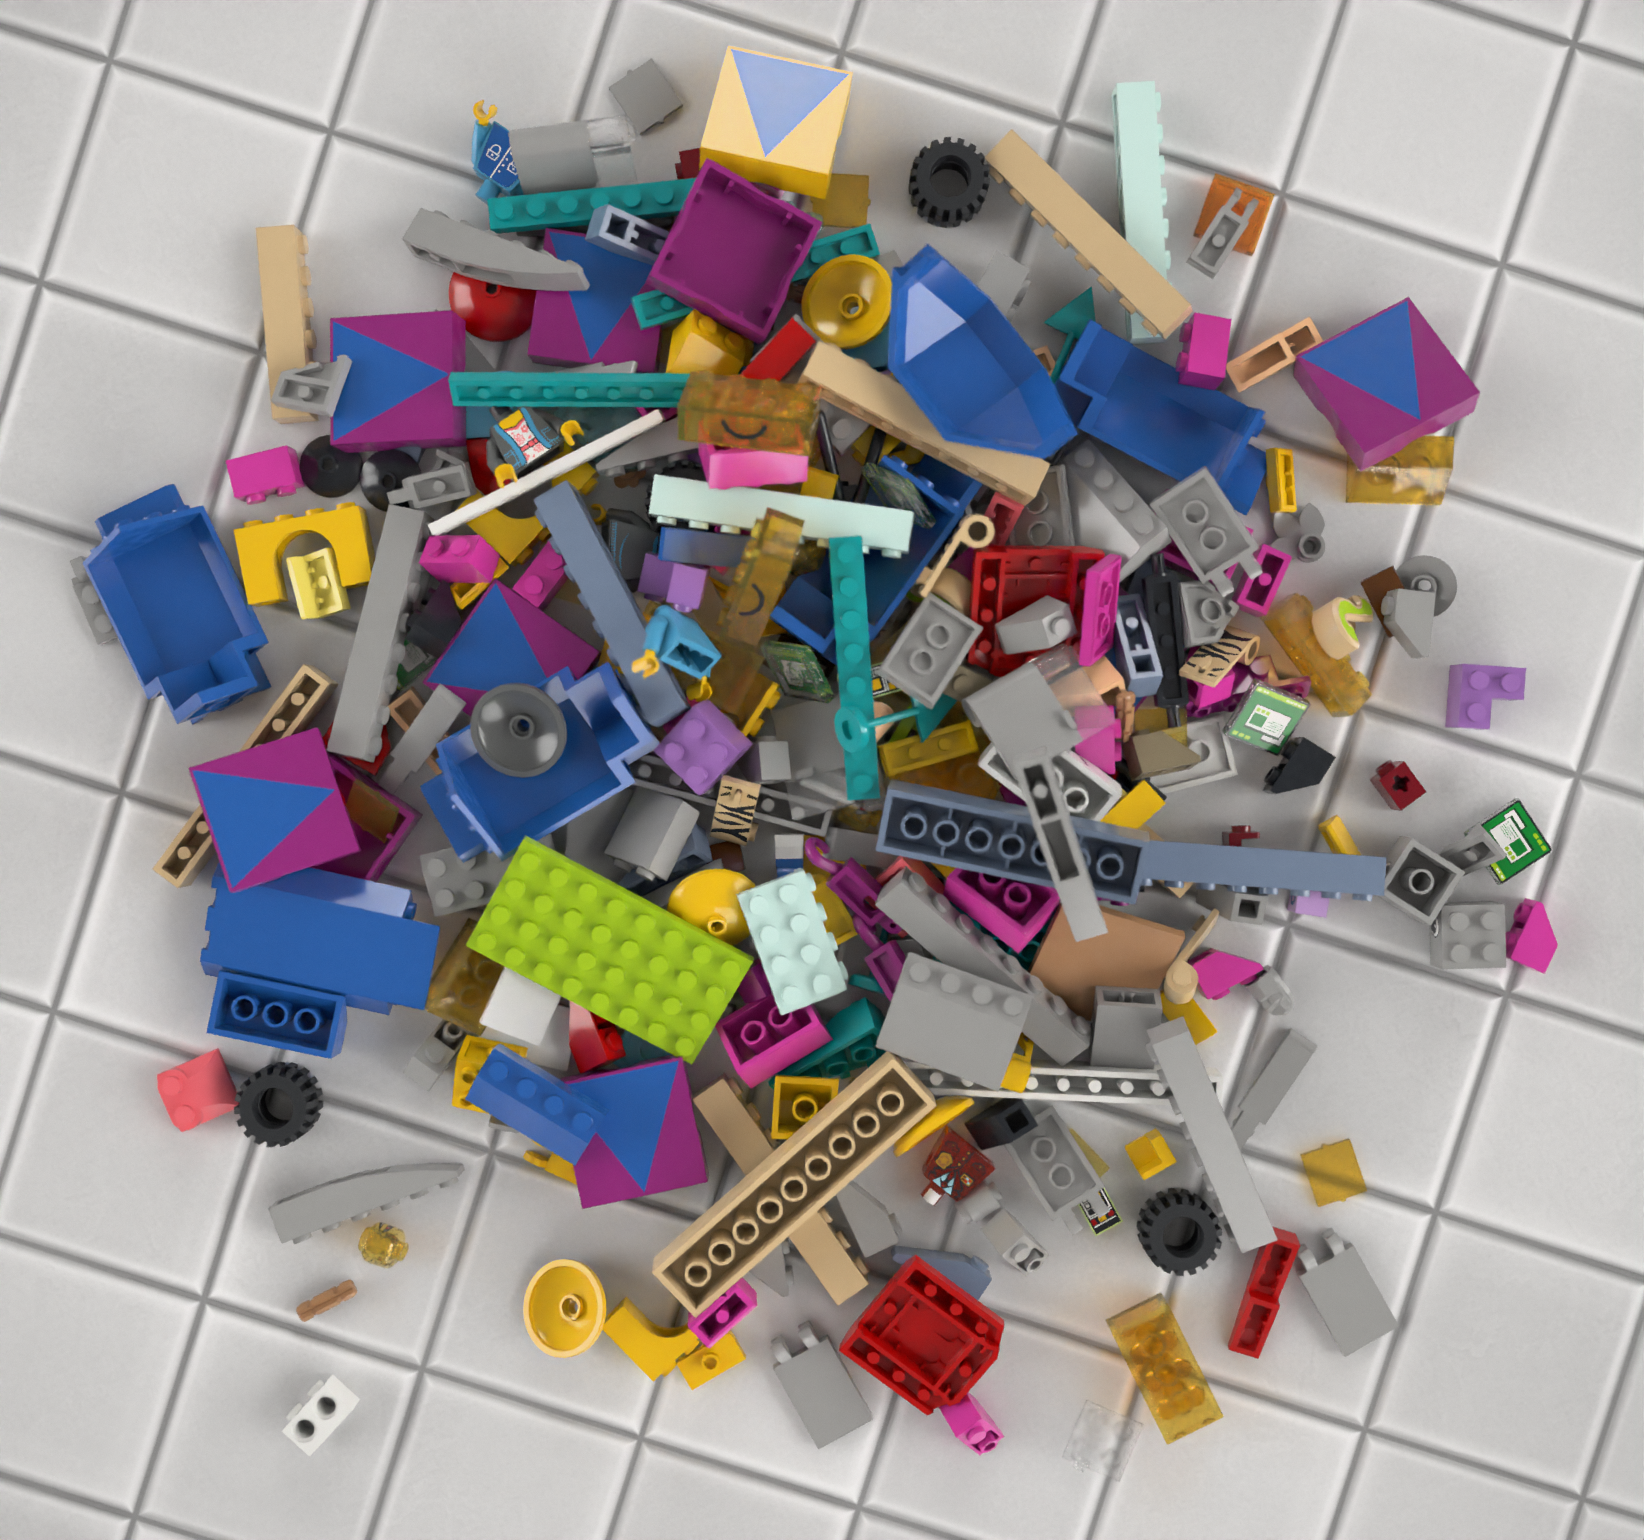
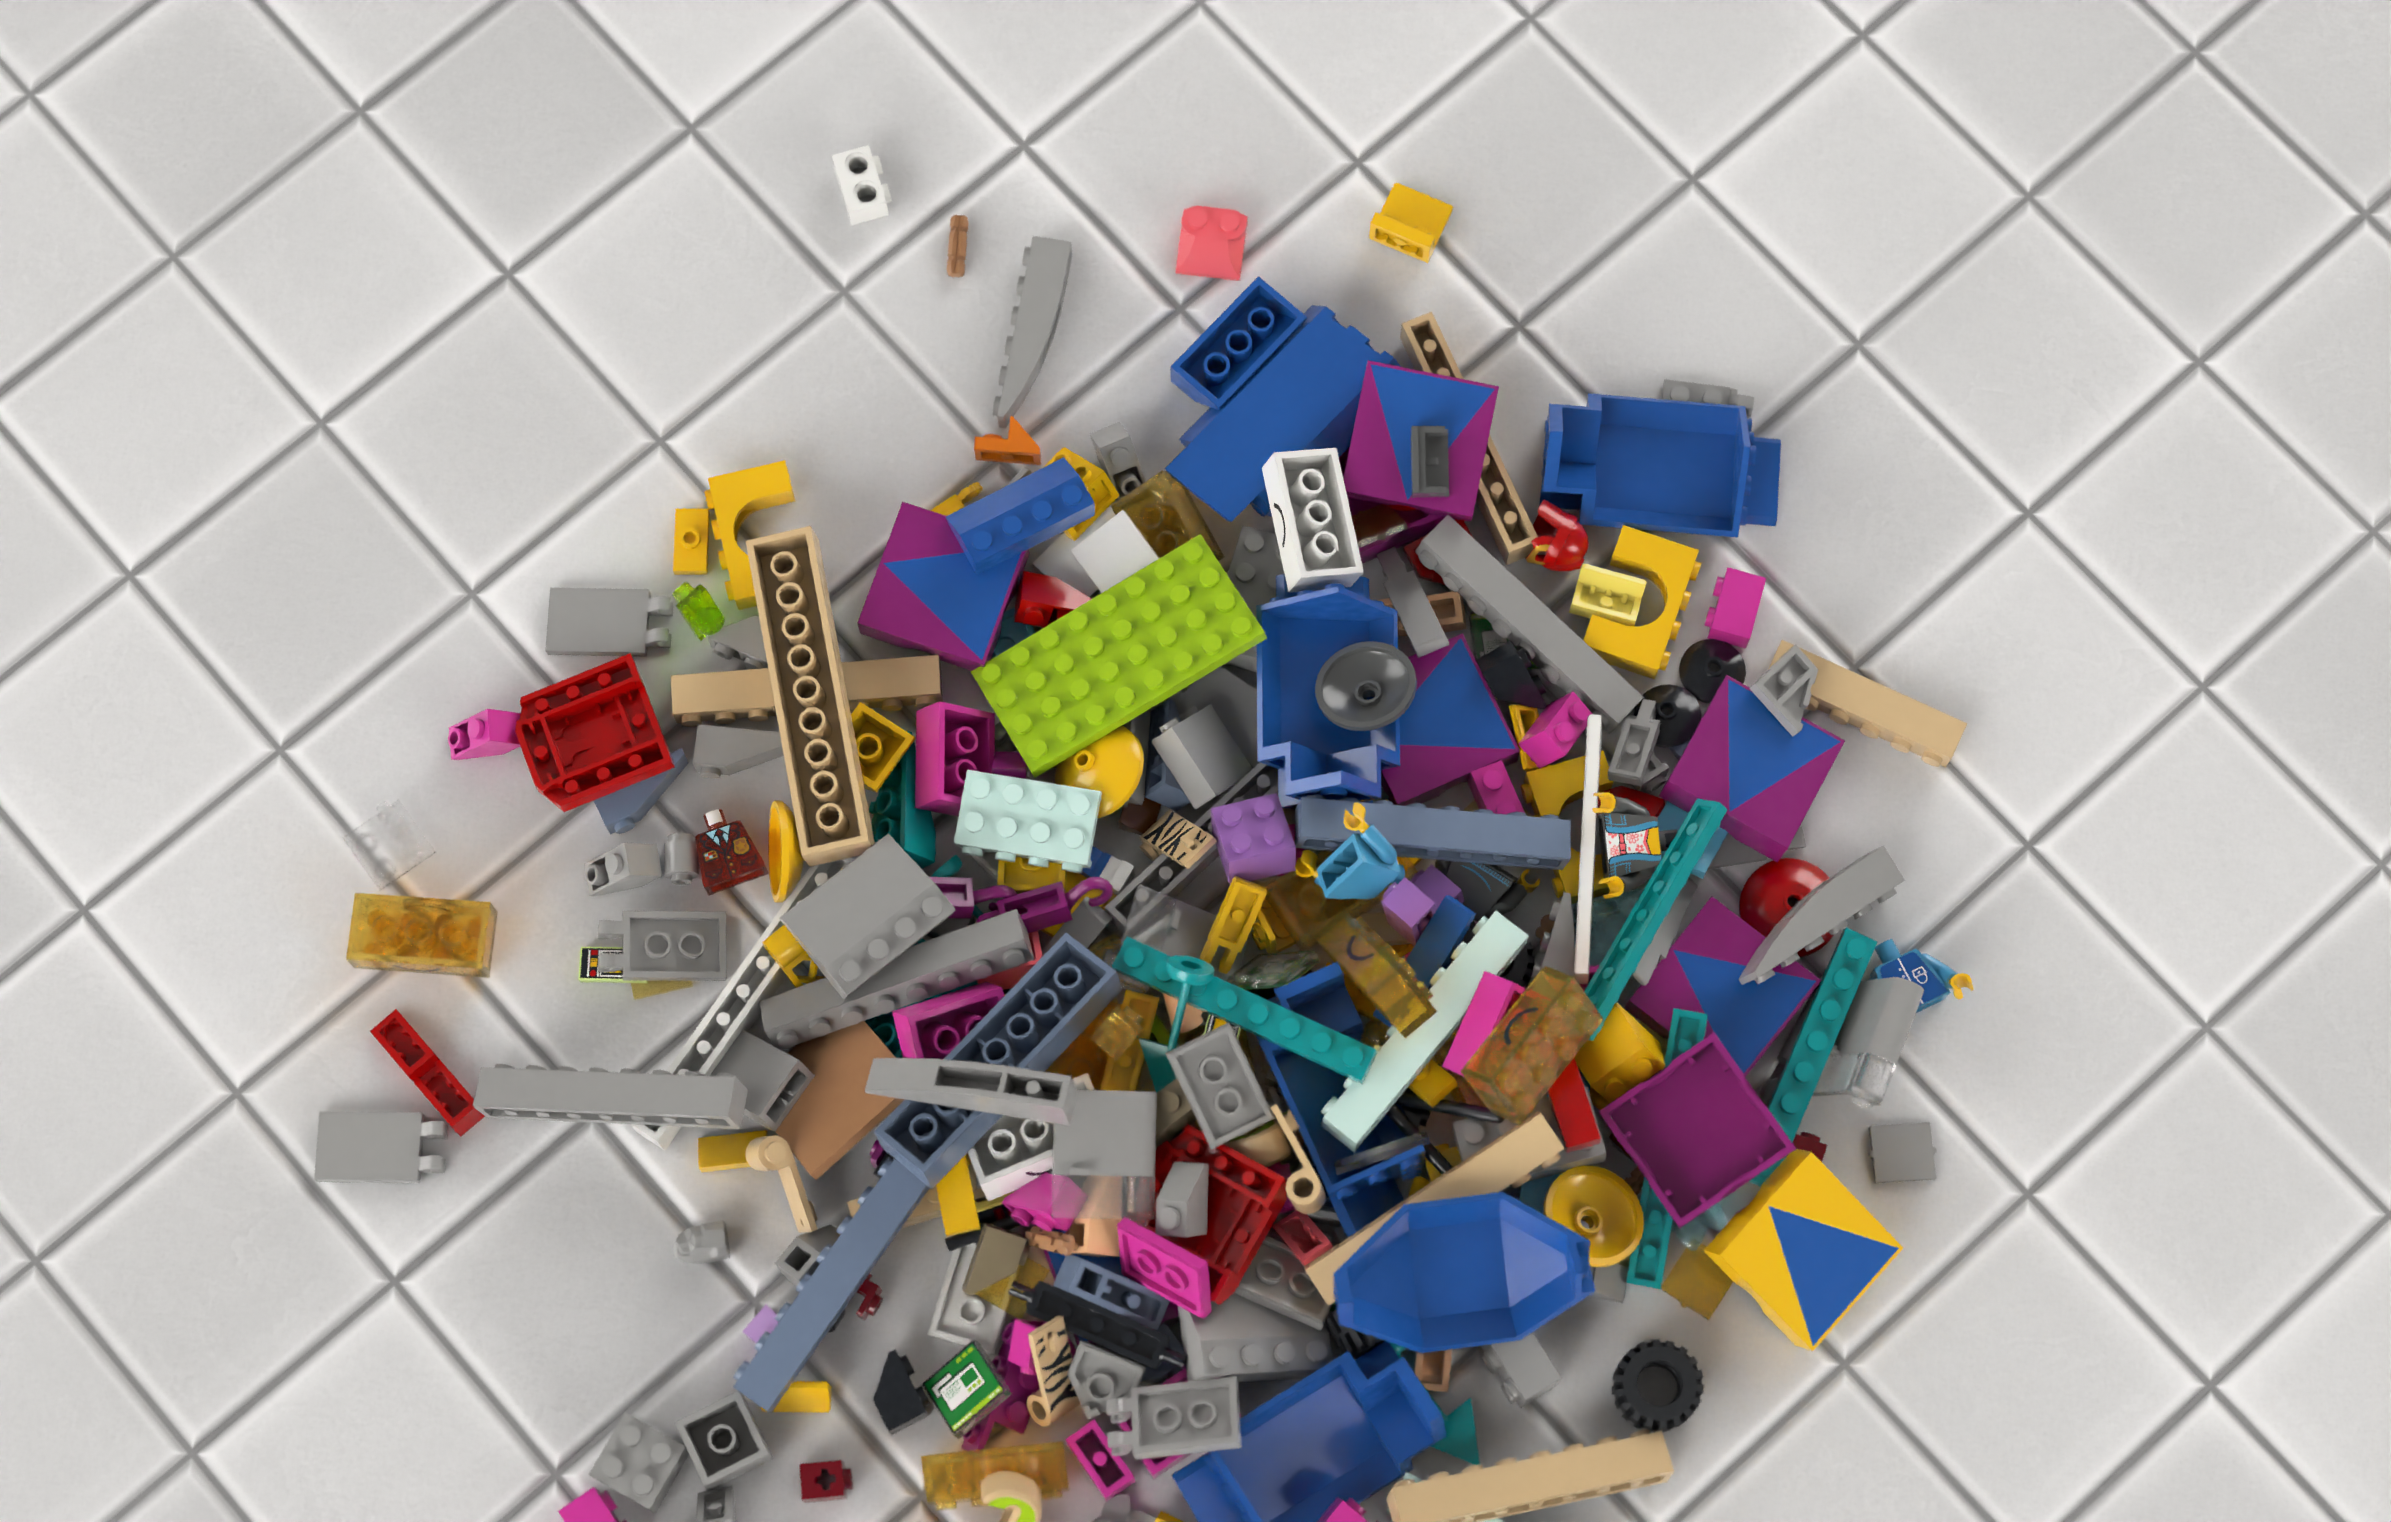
camera: 120 degrees right, 15 degrees down
(81, 935) = (1410, 222): none -> yellow bracket
(261, 1122) = (1157, 278): black tyre -> none
(290, 648) = (1560, 537): none -> red helmet
(291, 788) = (1429, 461): none -> dark grey hinge
(383, 1245) = (976, 320): clear yellow head -> none
(399, 858) = (1312, 519): none -> white brick
(476, 1143) = (1017, 449): none -> orange slope
(551, 1308) = (822, 440): yellow dish -> none
(625, 234) = (1770, 1043): sand blue slope -> none
(724, 1313) = (733, 570): dark pink brick -> none
(766, 761) = (1204, 892): light grey slope -> none
(769, 1317) = (698, 610): none -> clear neon green hips
(781, 723) = (1234, 921): none -> yellow hinge
(934, 758) = (1119, 1032): none -> clear yellow brick
(1001, 1123) = (740, 920): black slope -> none
(1150, 1154) = (624, 1042): yellow panel -> none
(1193, 1252) = (518, 1003): black tyre -> none
(1222, 970) = (755, 1206): dark pink slope -> none
(1272, 1084) = (613, 1193): light grey piece -> none
(1333, 1172) = (495, 1205): clear yellow piece -> none

